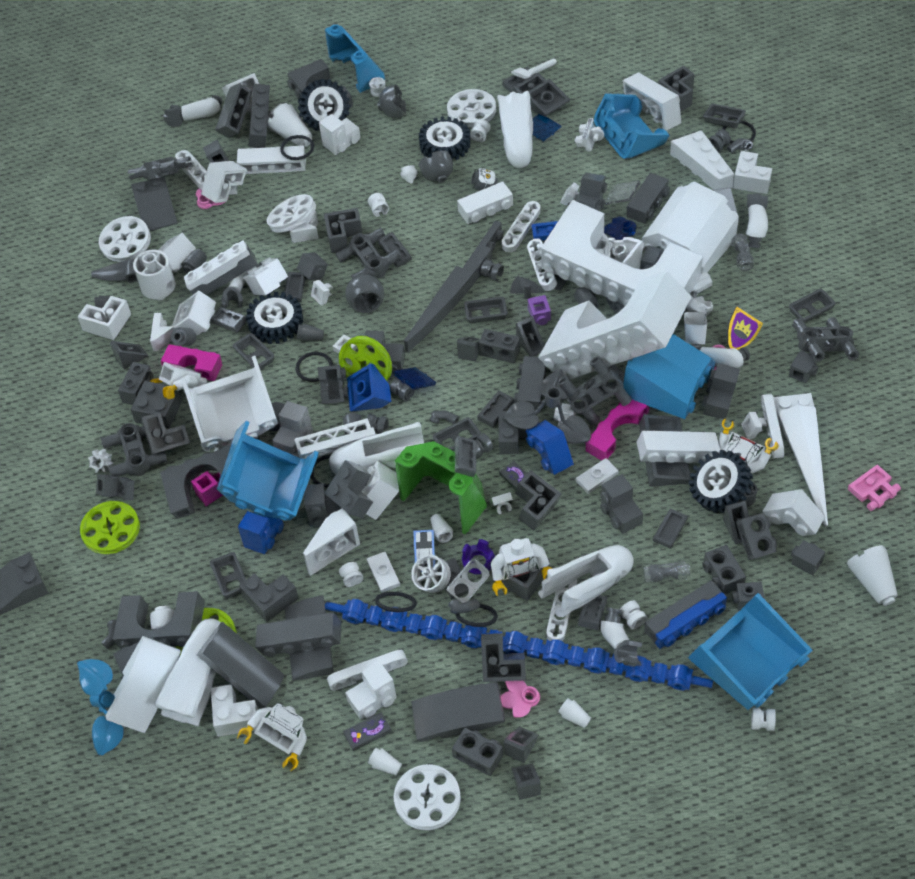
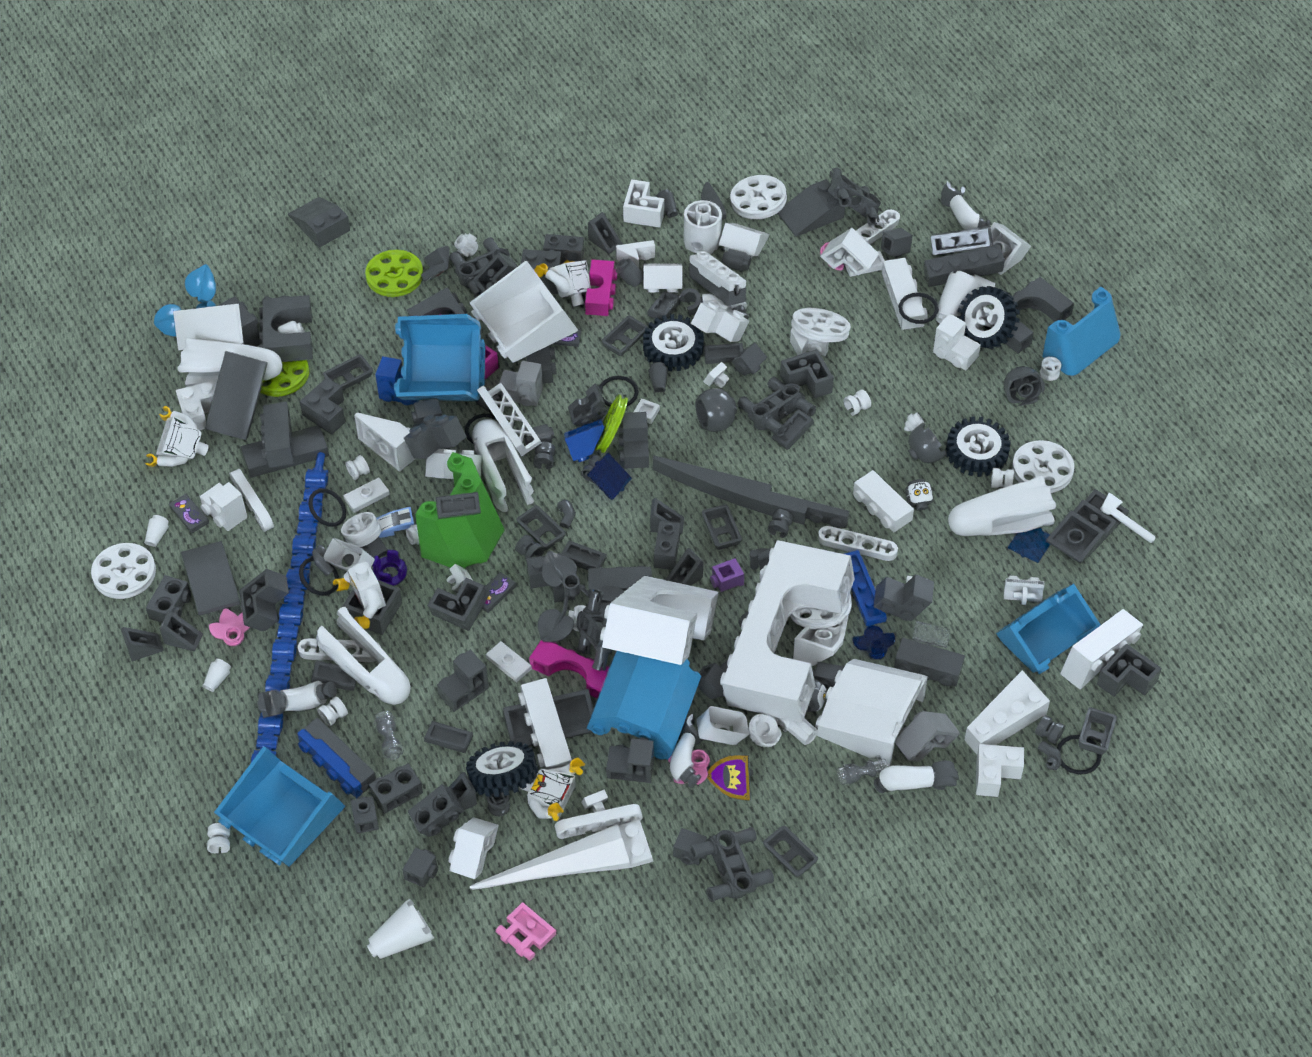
camera: 75 degrees right, 0 degrees up
(551, 445) = (527, 605): blue brick -> none

